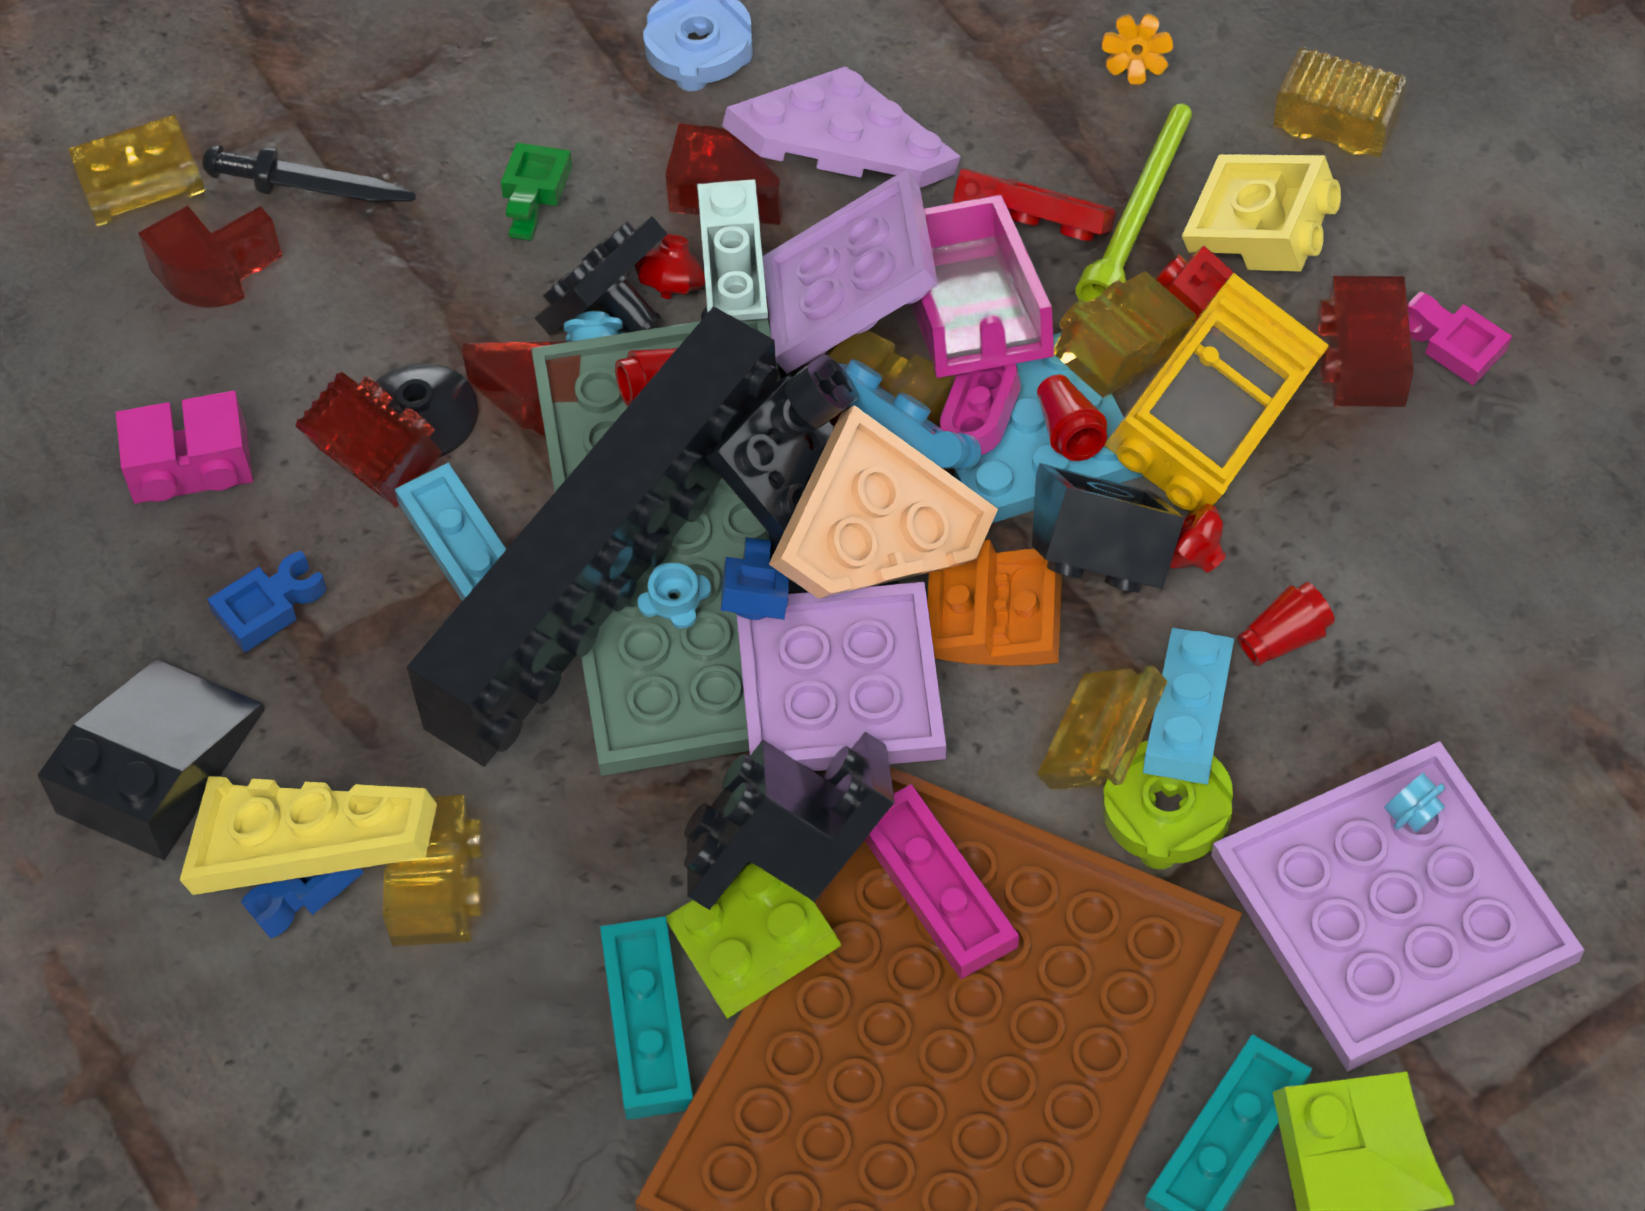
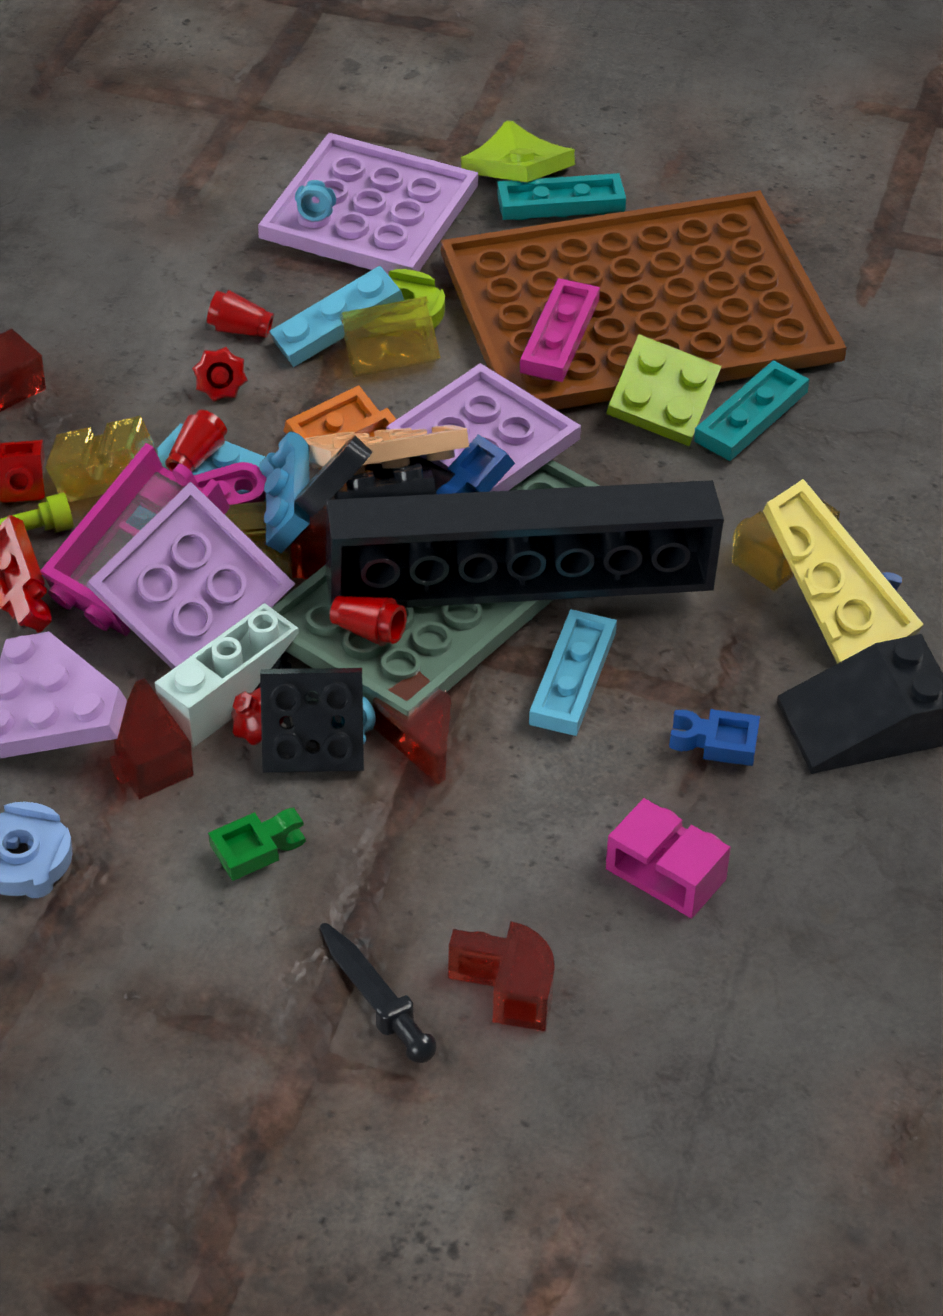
camera: 135 degrees left, 10 degrees down
(135, 168) = (471, 1116): clear yellow plate -> none
(369, 437) = (556, 758): clear red brick -> none
(445, 402) = (496, 784): black dish -> none
(787, 819) = (599, 385): black bracket -> none
(1103, 529) = (257, 396): black slope -> none
(1216, 396) = (105, 394): yellow door -> none

